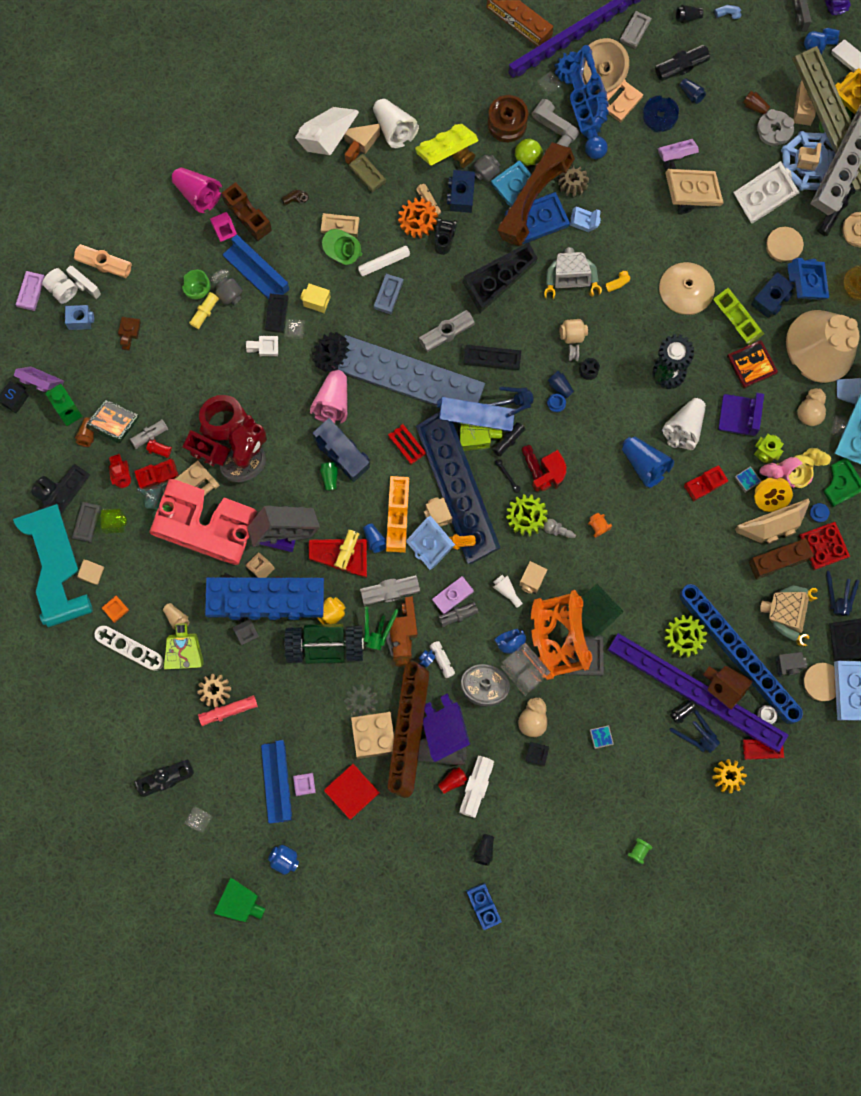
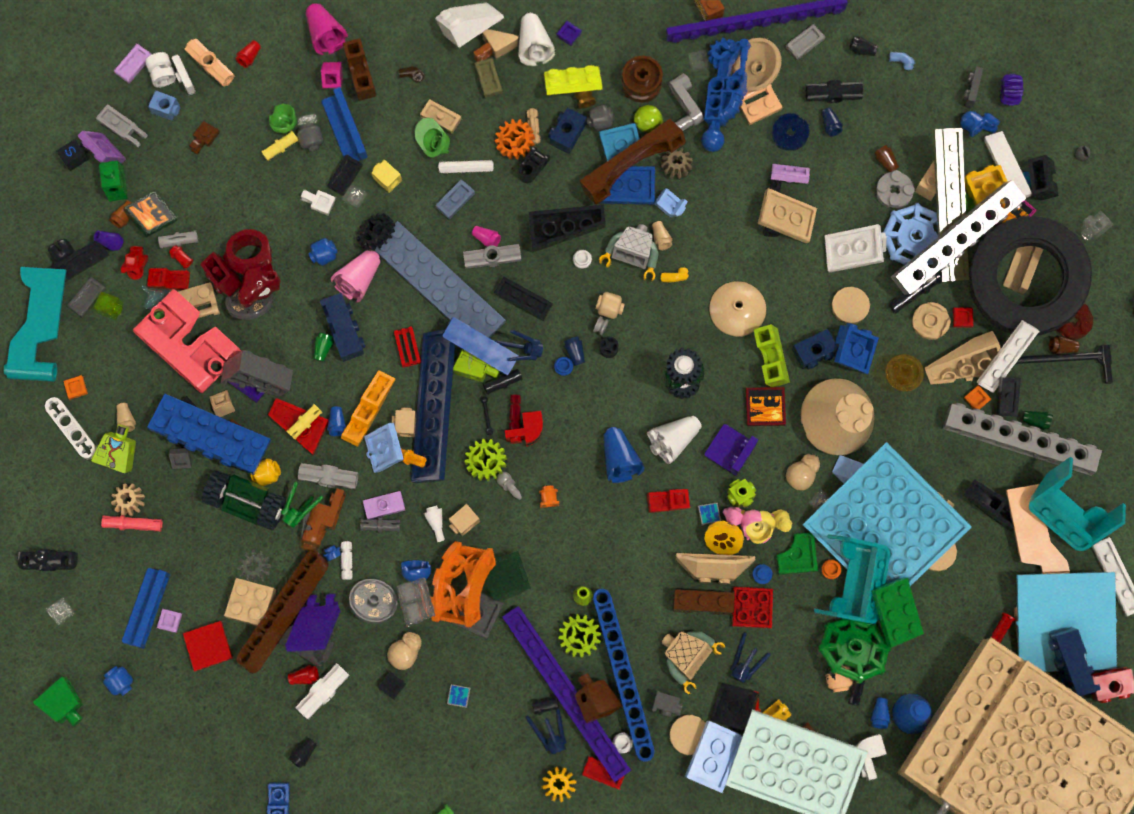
camera: 25 degrees right, 0 degrees up
(45, 352) = (120, 125): none -> light grey hinge
(86, 460) = (110, 240): none -> dark purple cone
(90, 572) = (68, 344): tan slope -> none
(135, 239) = (248, 54): none -> red cone
(290, 389) = (323, 251): none -> blue head
(421, 105) = (569, 33): none -> dark purple tile
(432, 315) = (486, 236): none -> dark pink cone
(528, 300) = (582, 259): none -> white plate
(590, 251) = (661, 236): none -> tan cone
(670, 603) = (583, 600): none -> lime cone
(809, 157) = (910, 231): tan panel -> none

